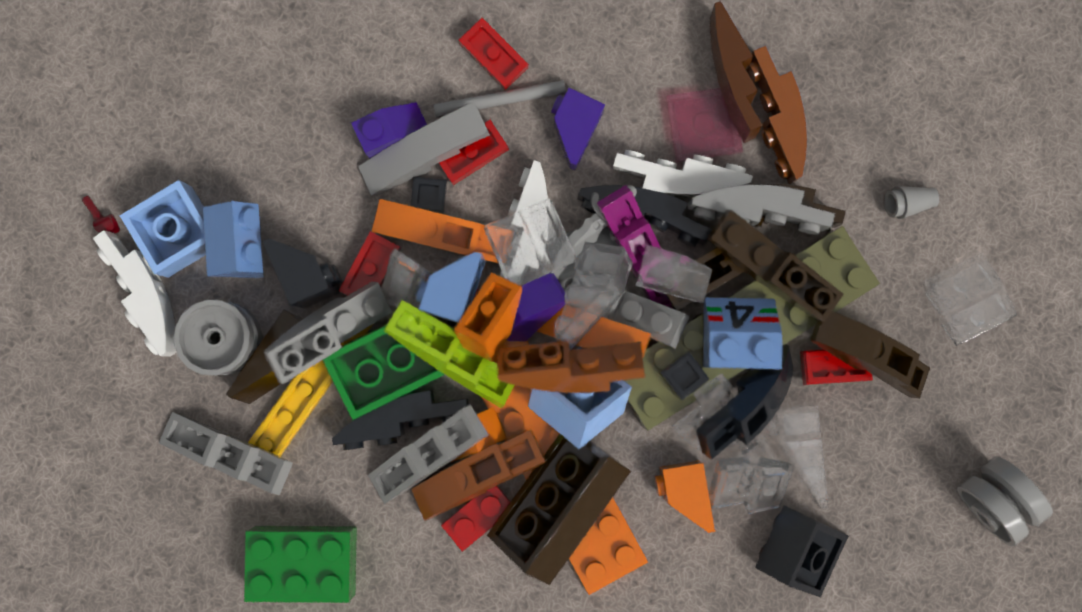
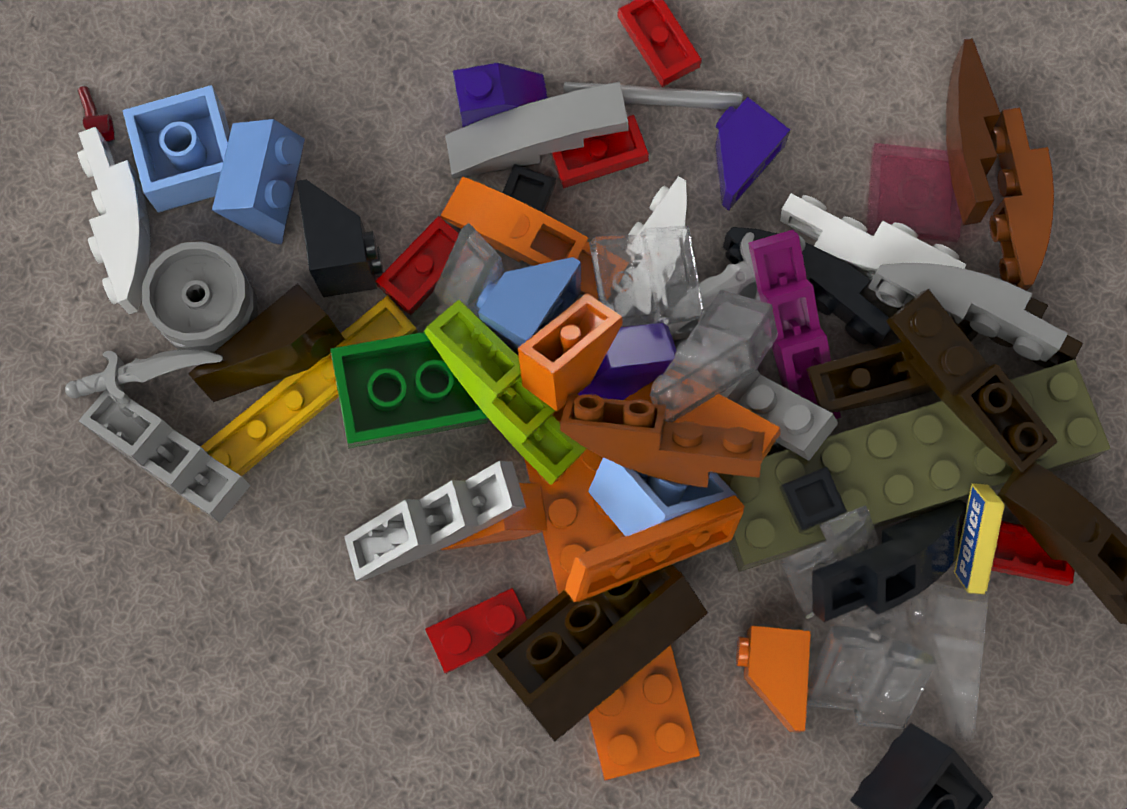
camera: 15 degrees right, 10 degrees down
(189, 398) = (139, 370): none -> light grey piece
(300, 564) = (219, 627): green brick -> none
(325, 330) = (346, 318): light grey slope -> none
(388, 420) = (390, 465): black slope -> none
(477, 474) = (488, 566): dark orange slope -> none
(584, 444) = (653, 548): none -> orange tile
(673, 274) = (829, 358): clear slope -> none
(741, 333) = (904, 463): medium blue slope -> none
(803, 370) = (979, 538): none -> light yellow tile

